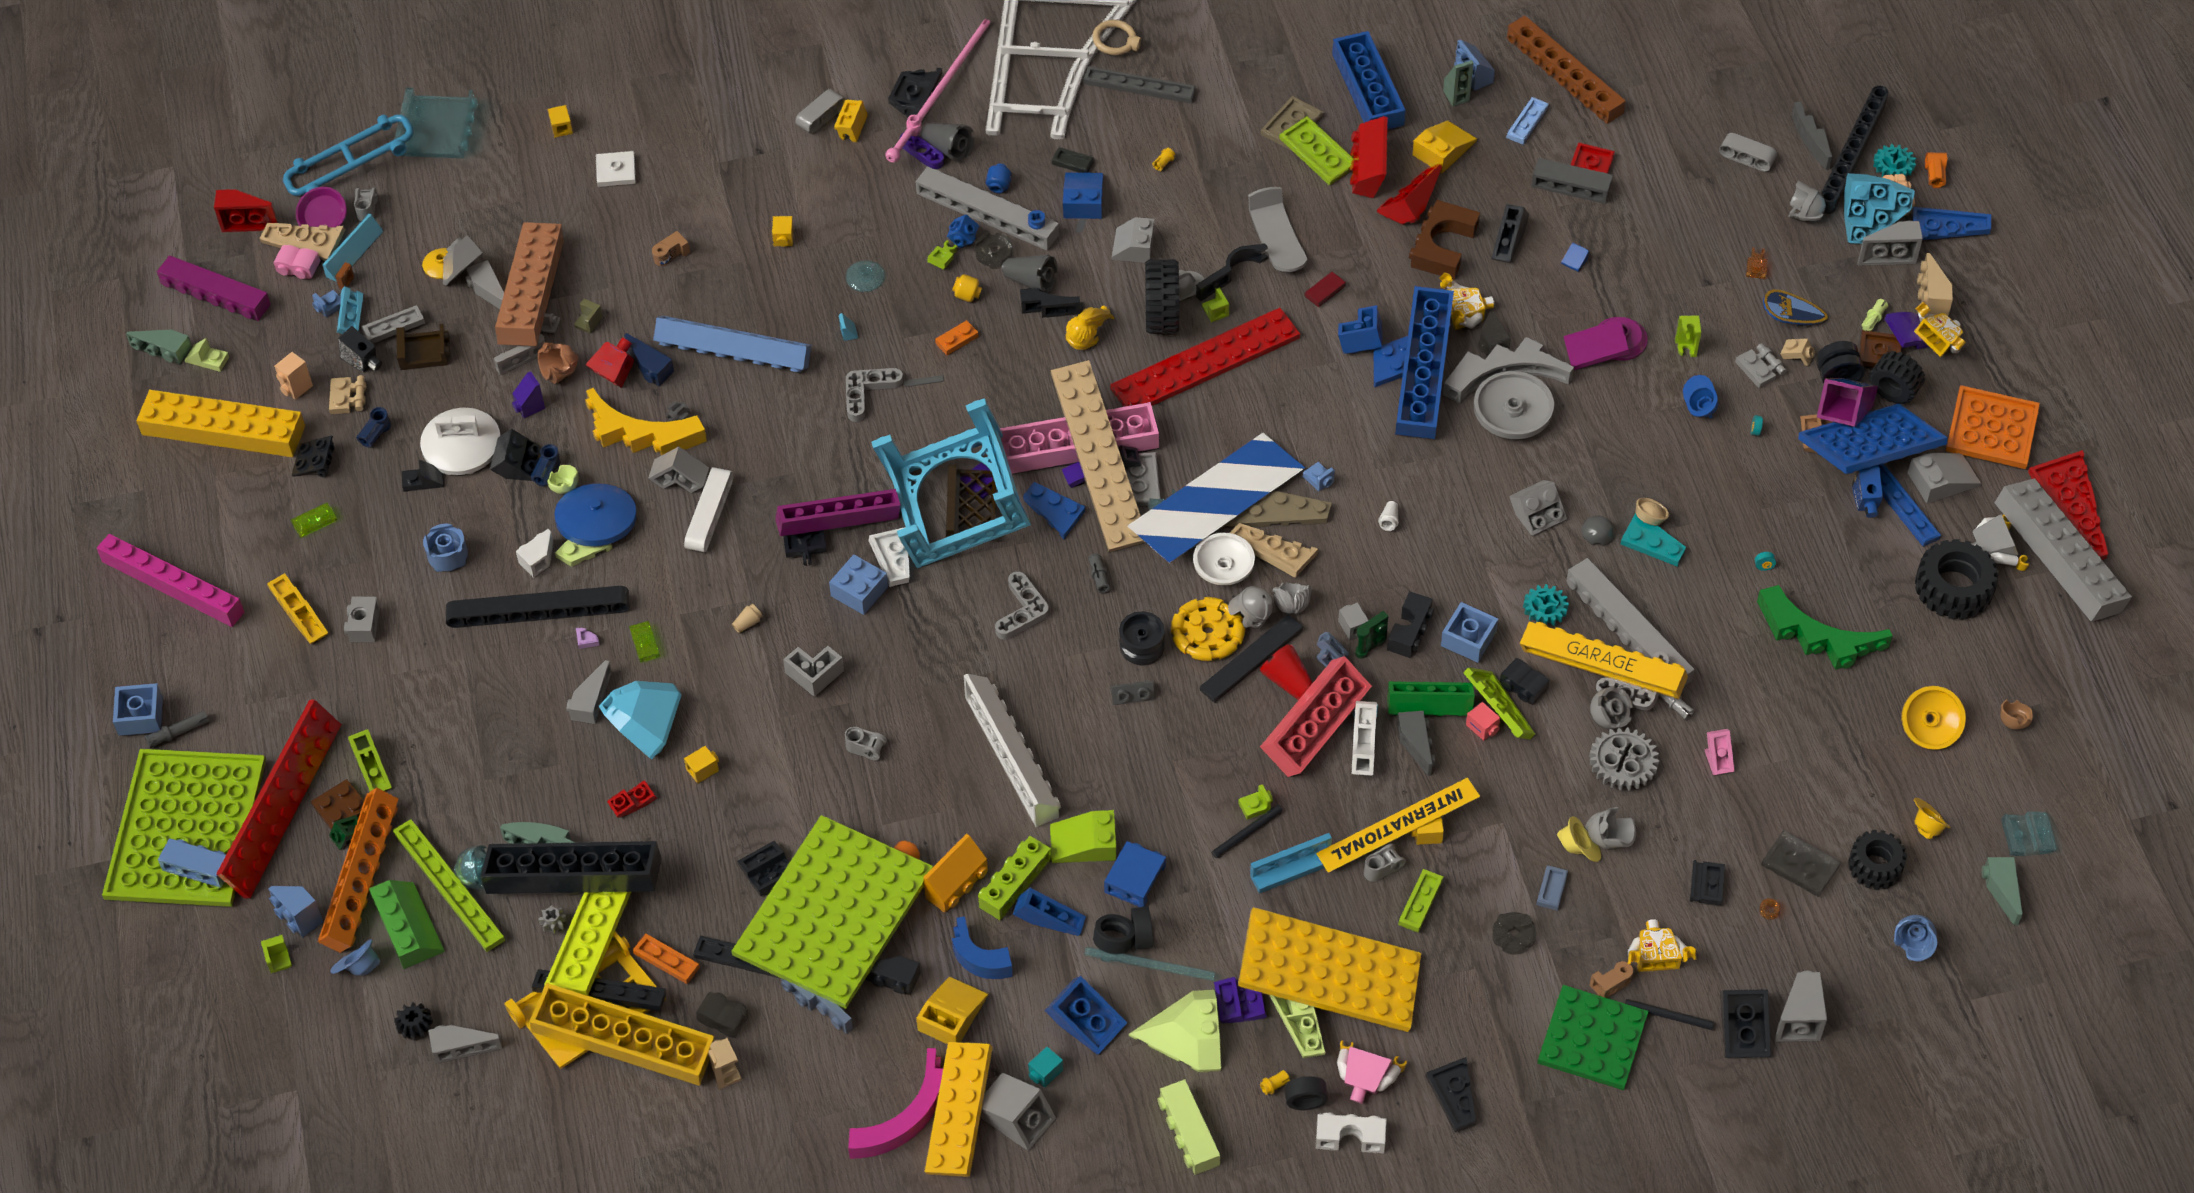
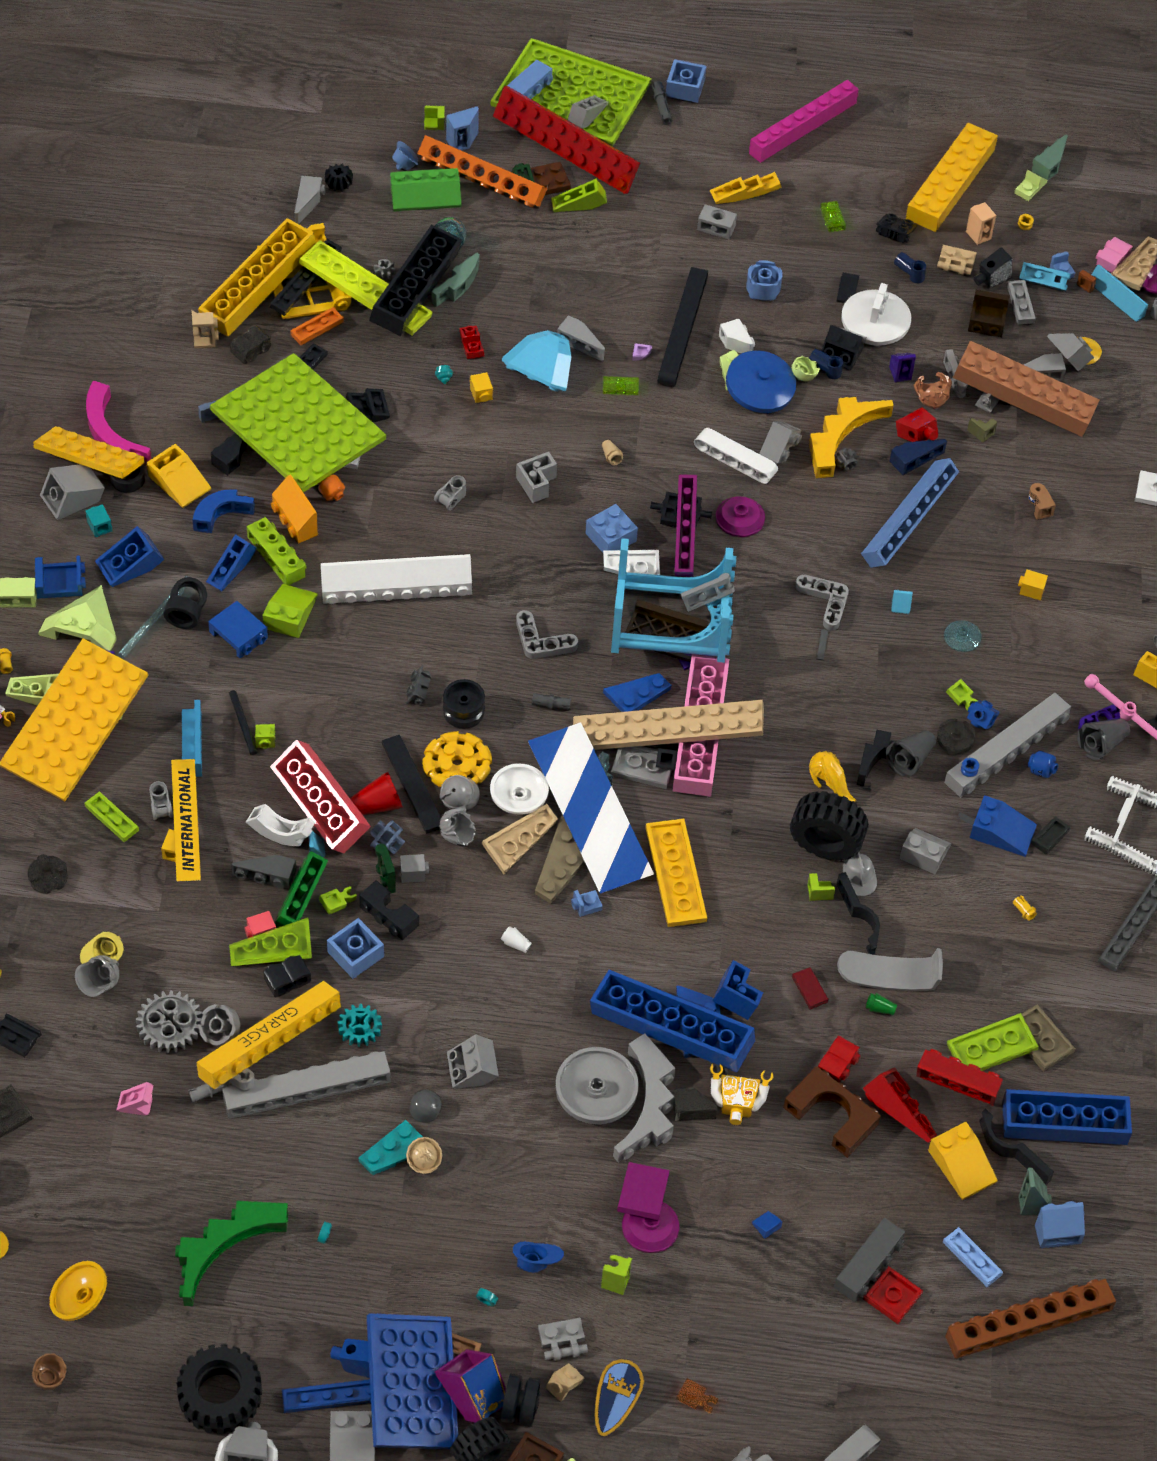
camera: 105 degrees right, 0 degrees up
(213, 288) = (1102, 199): magenta brick -> none
(227, 787) = (586, 110): none -> light grey slope
(266, 354) = (1027, 218): none -> yellow bush
(449, 885) = (466, 215): lime plate -> none
(692, 808) = (443, 373): none -> teal plate
(785, 486) = (740, 516): none -> magenta piece
(919, 465) = (708, 592): none -> light grey plate
(956, 337) = (861, 680): orange plate -> none
(966, 288) = (914, 699): yellow head -> none
(1138, 1074) = (59, 578): none -> blue panel
(1206, 360) = (759, 862): red plate -> none
(1252, 417) = (676, 872): none -> yellow plate
(1318, 234) = (879, 1004): none -> green cone
(1391, 248) = (840, 1058): none -> red brick
(1405, 133) = (1019, 1152): none -> black piece
(1418, 673) = (335, 901): none -> lime plate
(1510, 232) = (821, 1174): black slope -> none
(1552, 887) = (75, 919): sand blue tile -> none

